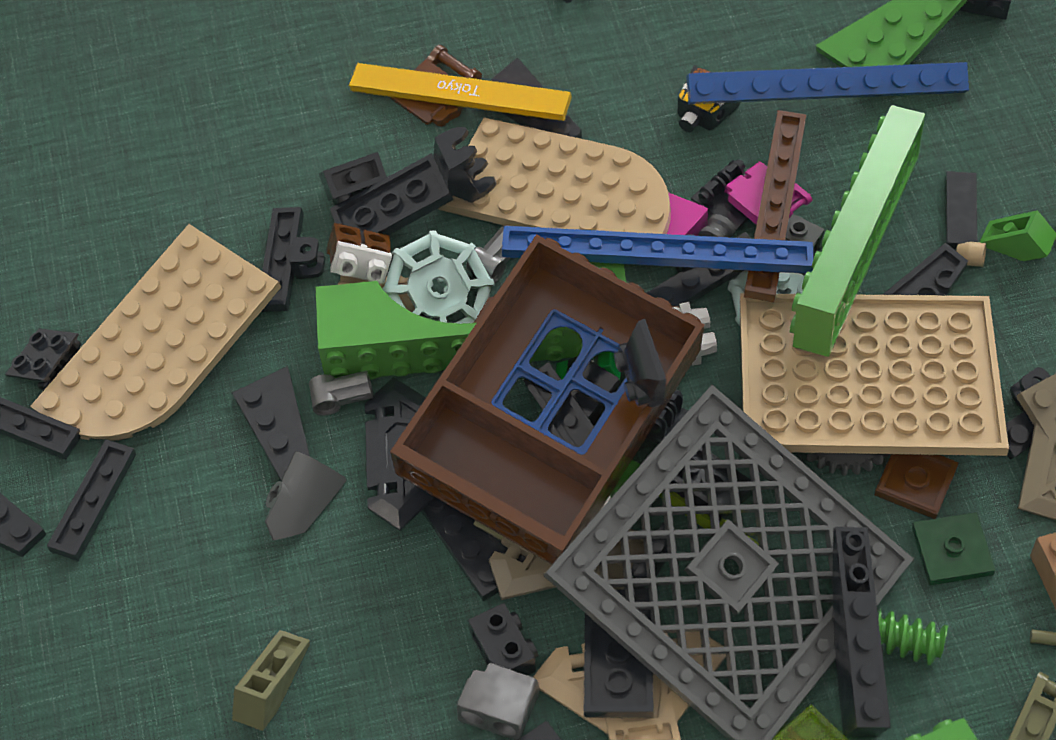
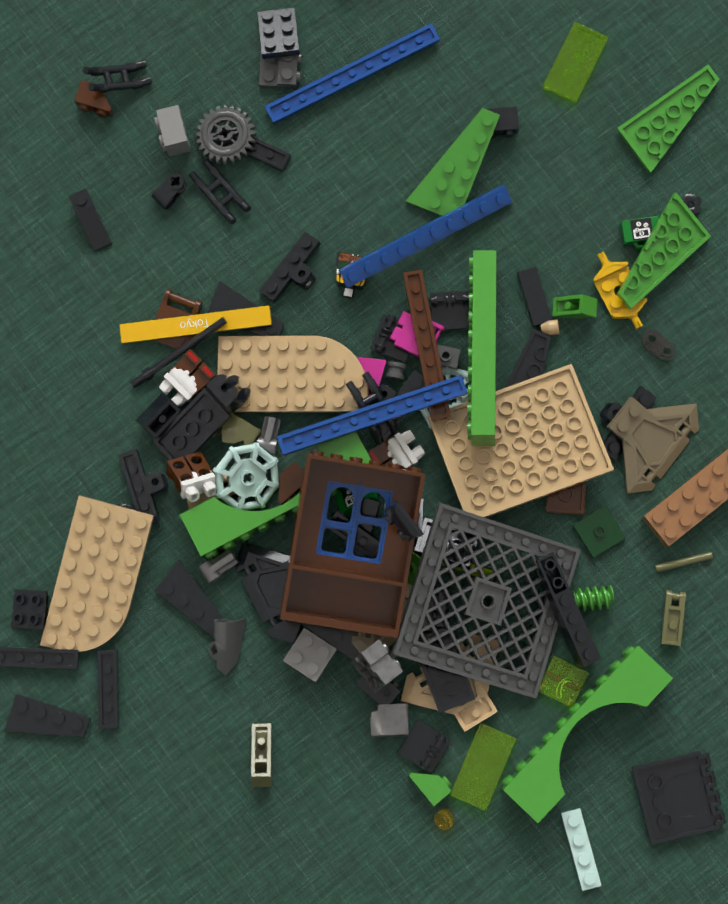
camera: 20 degrees left, 25 degrees up
(367, 130) = (148, 373): none -> black bar
(408, 143) = (187, 378): none -> hips
(417, 558) = (310, 655): none -> light grey brick
(455, 224) = (239, 431): none -> olive piece
(512, 590) = (377, 665): none -> flat silver brick
(623, 74) = (292, 269): none -> black plate
(651, 271) = (376, 395): none -> black piece
(825, 184) = (450, 309): none -> black hinge

